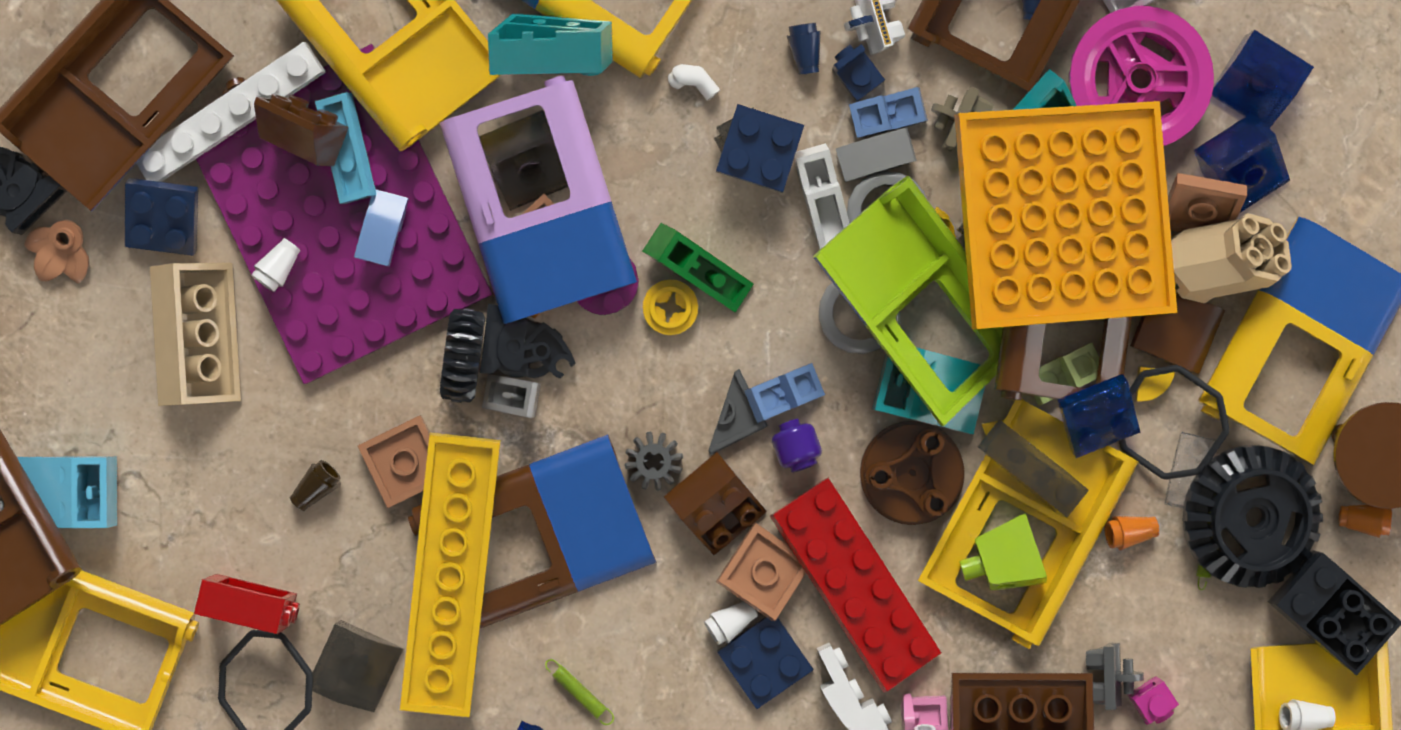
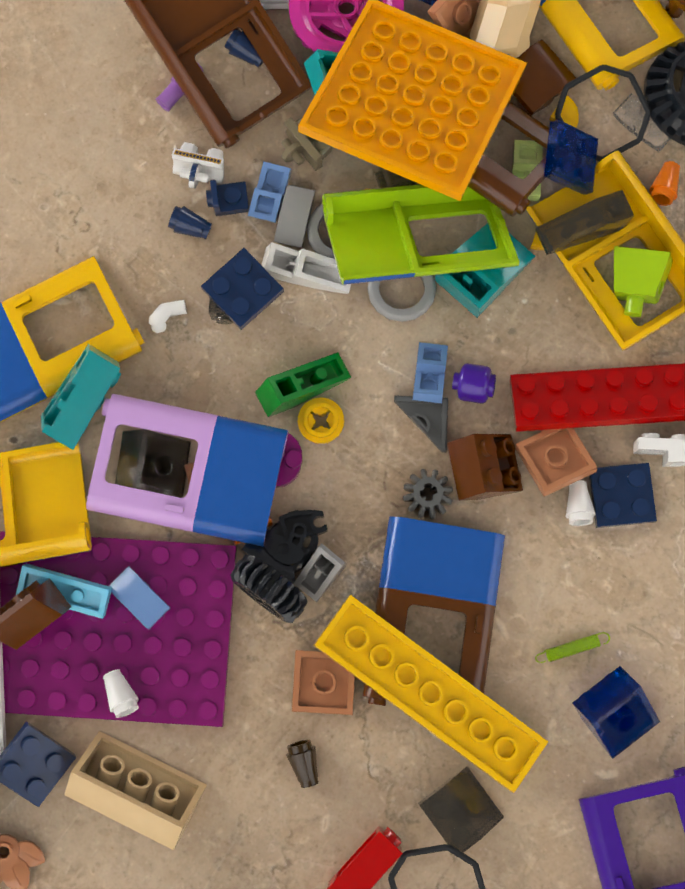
camera: 55 degrees left, 10 degrees down
(912, 473) = (539, 314): reddish brown piece -> none

